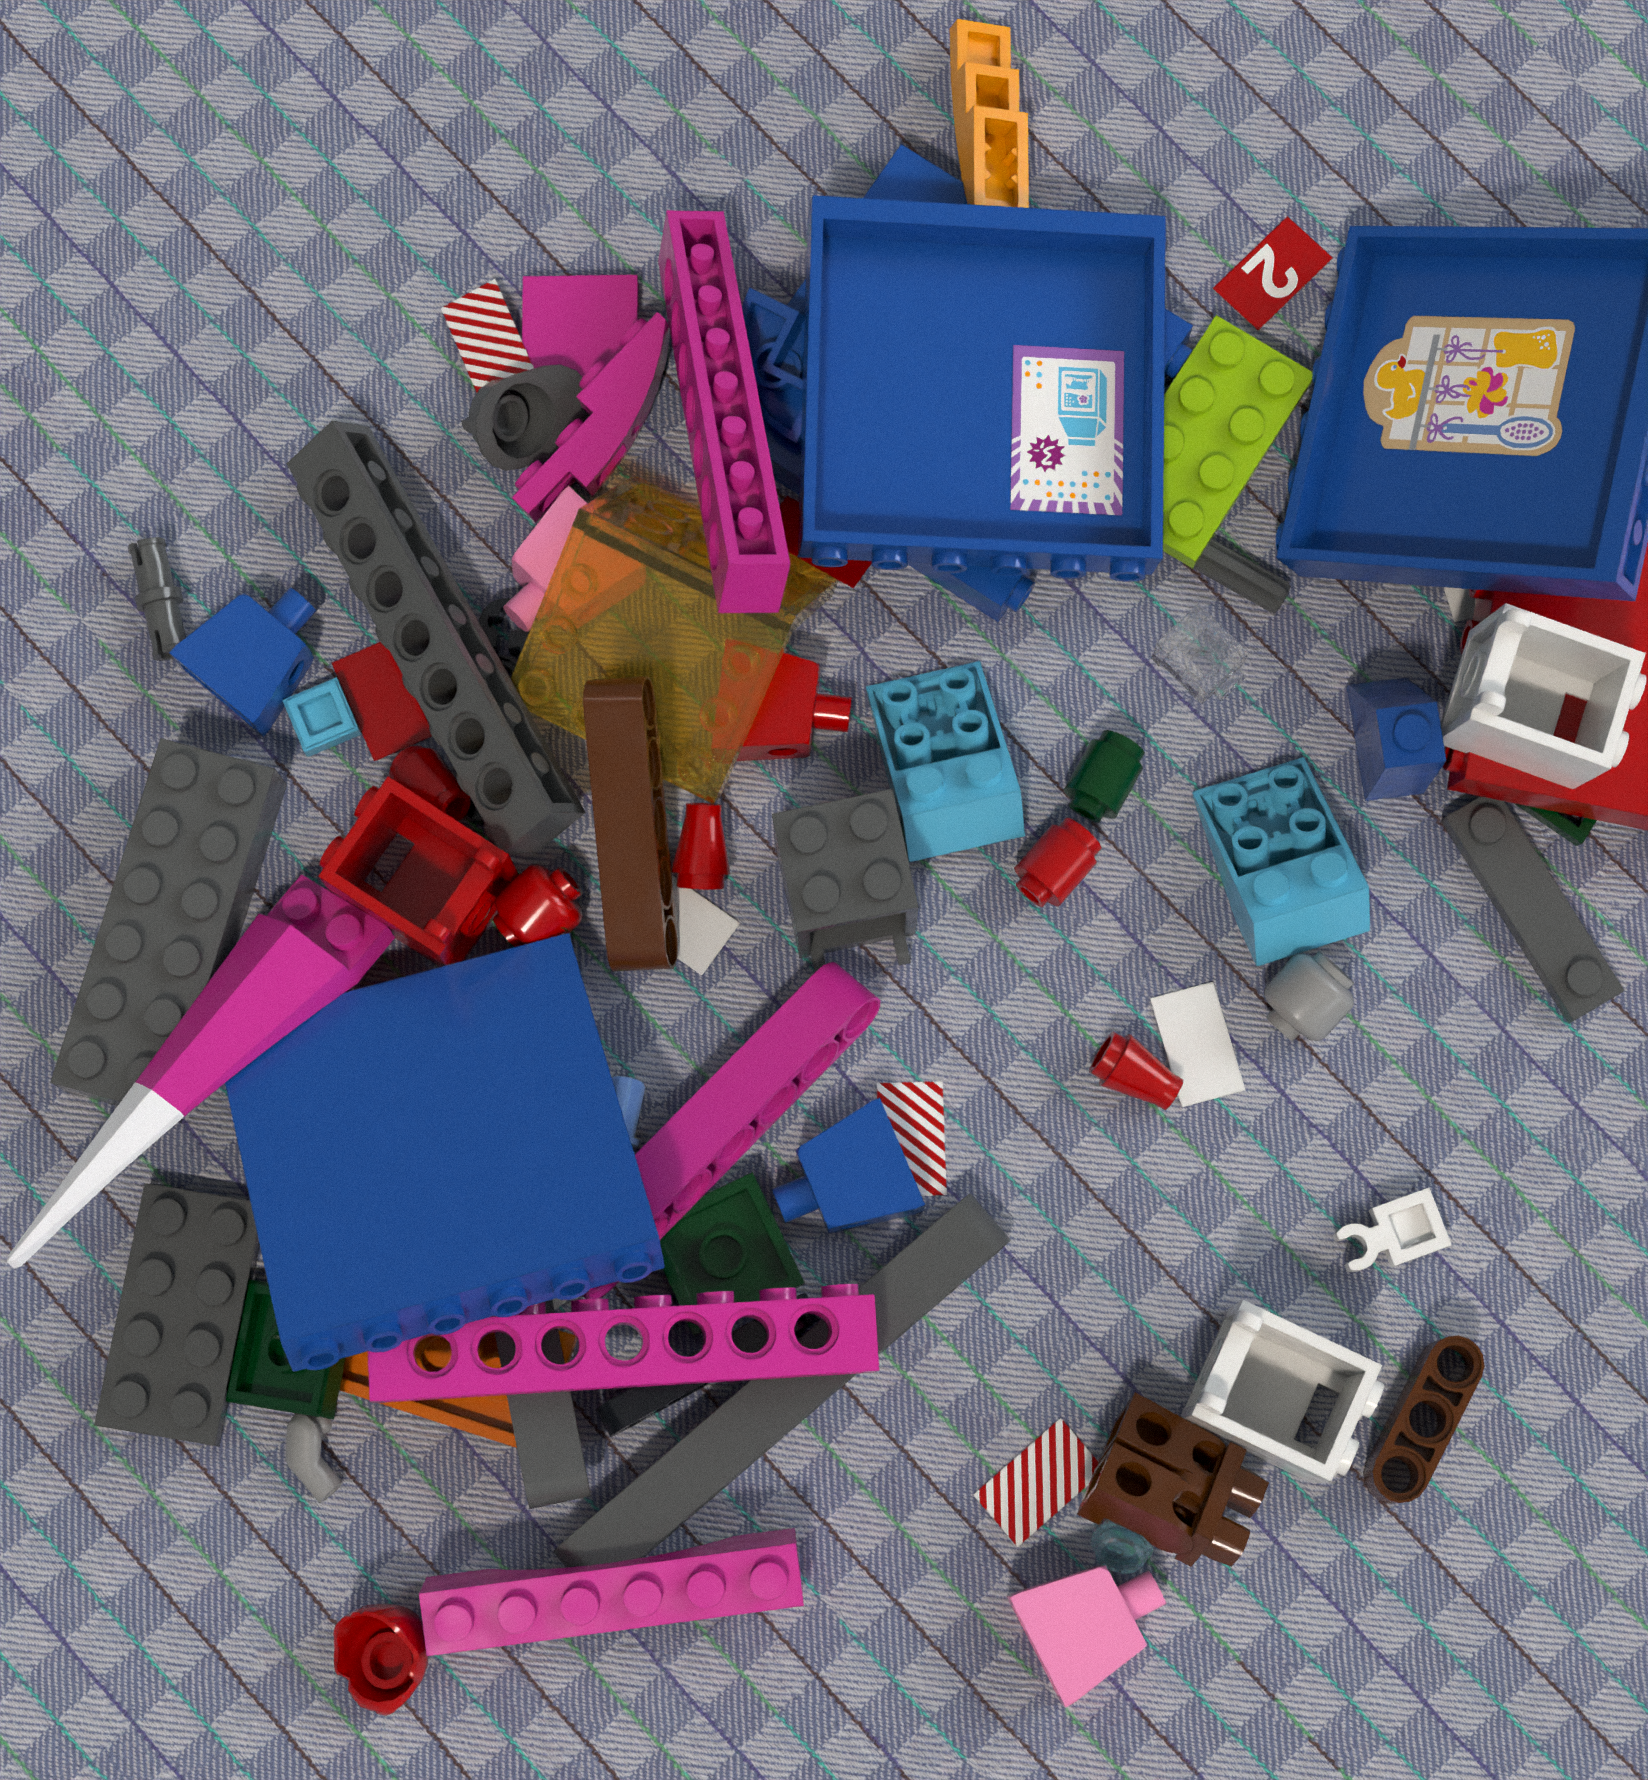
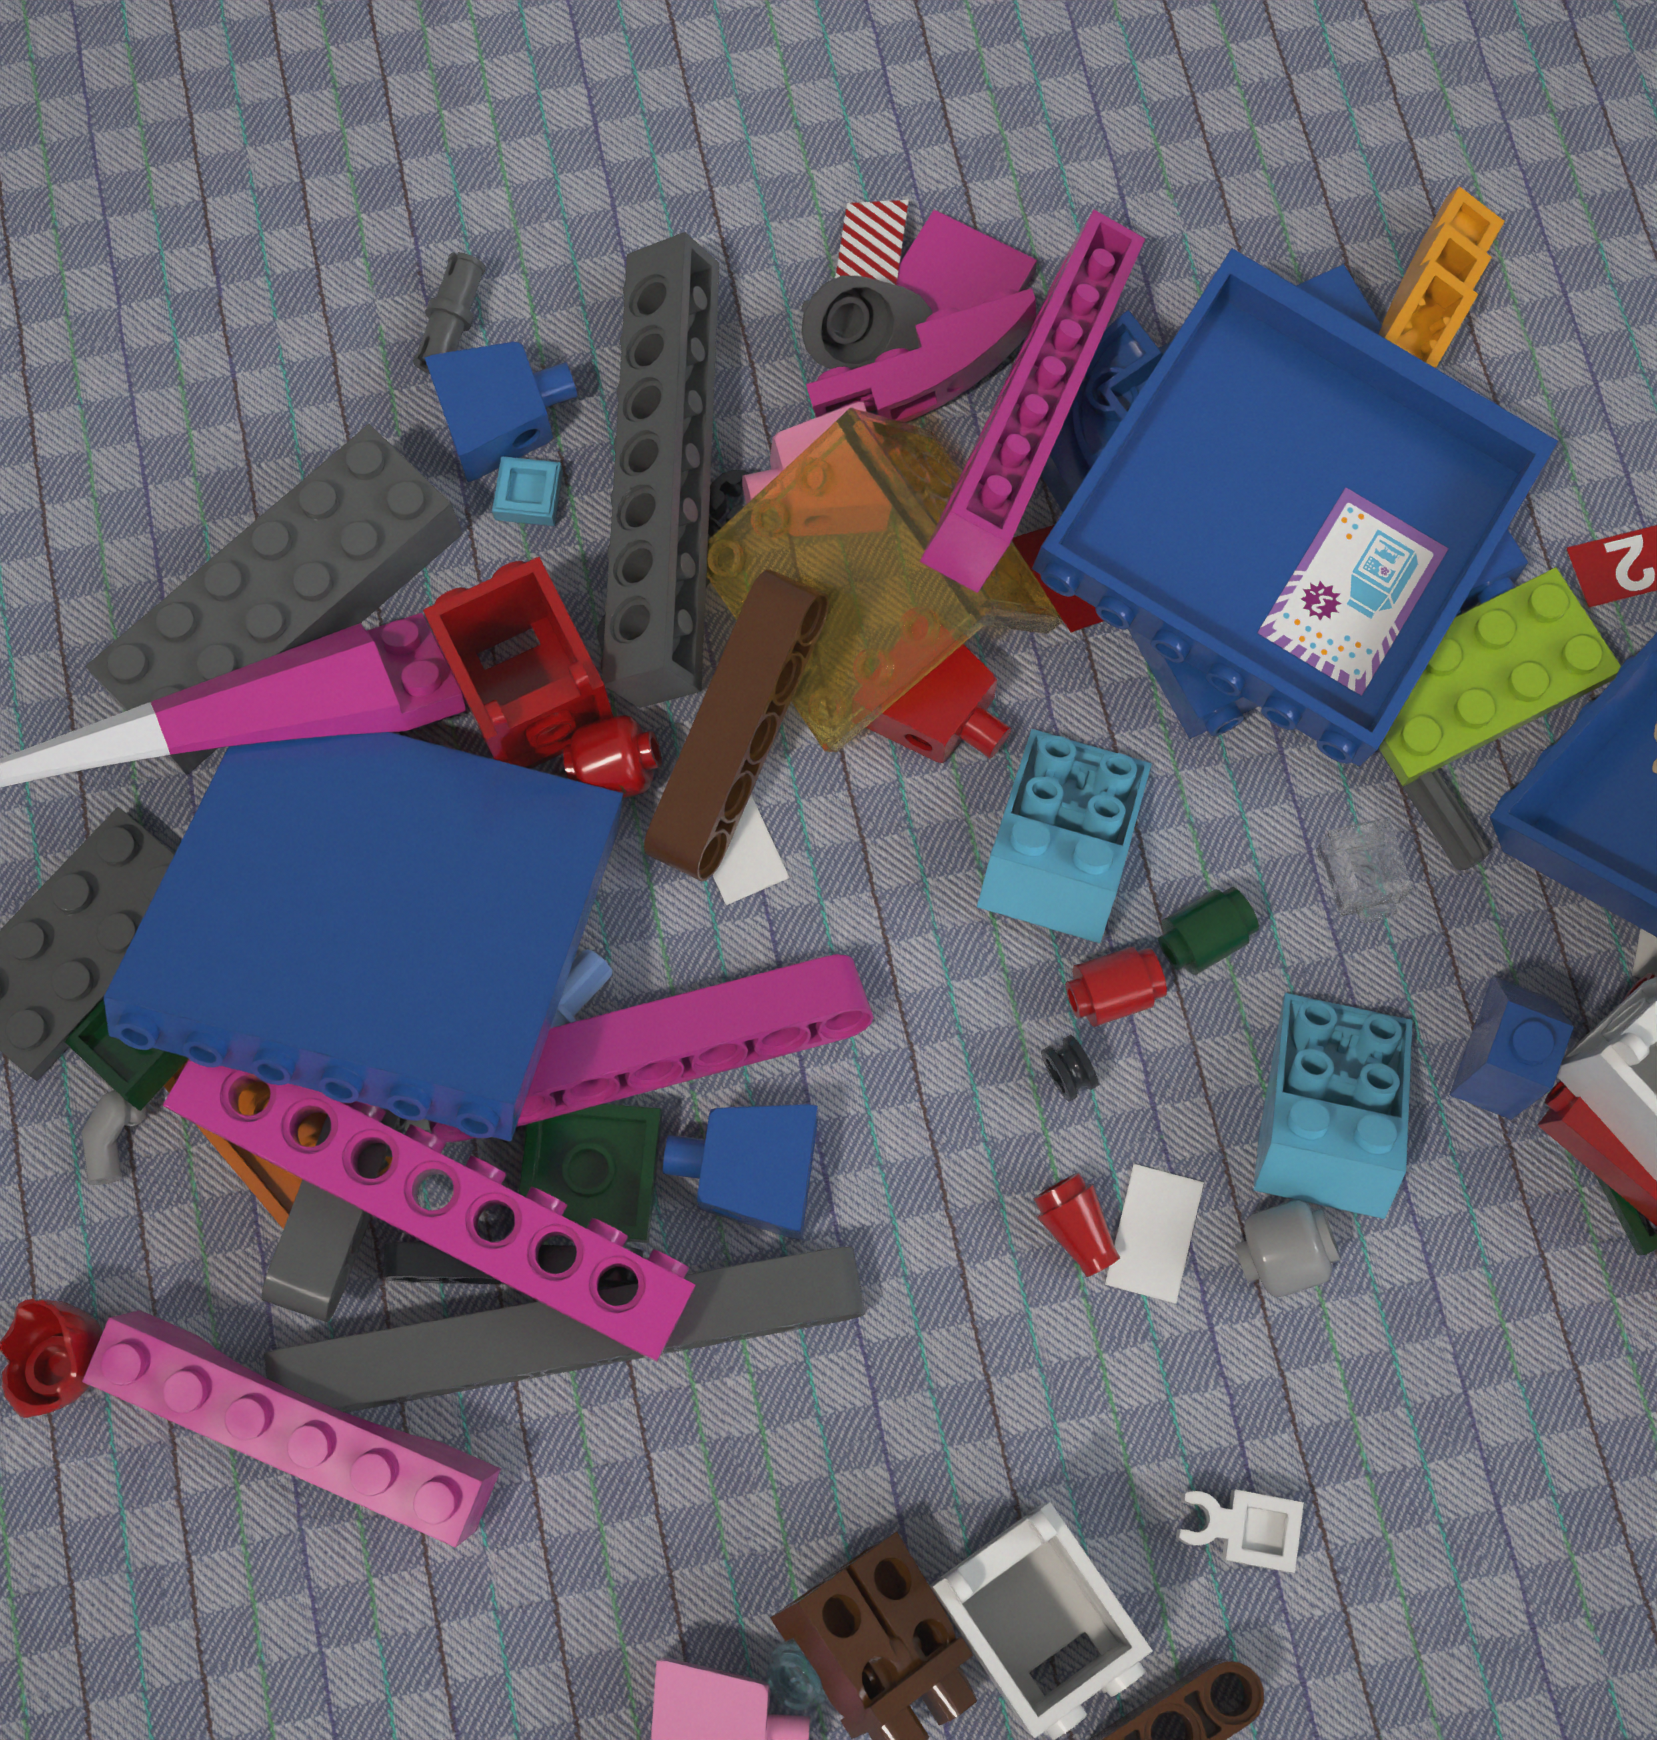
camera: 30 degrees right, 5 degrees down
(380, 702) = (584, 506): red sticker -> none
(430, 778) = (583, 590): red cone -> none
(701, 850) = (791, 788): red cone -> none
(846, 875) = (905, 880): dark grey container -> none
(918, 1122) = (841, 1159): sticker -> none
(1038, 1482) = (756, 1564): sticker -> none
(1058, 951) = (1069, 1068): none -> black bush
(1532, 906) = (1561, 1289): dark grey plate -> none

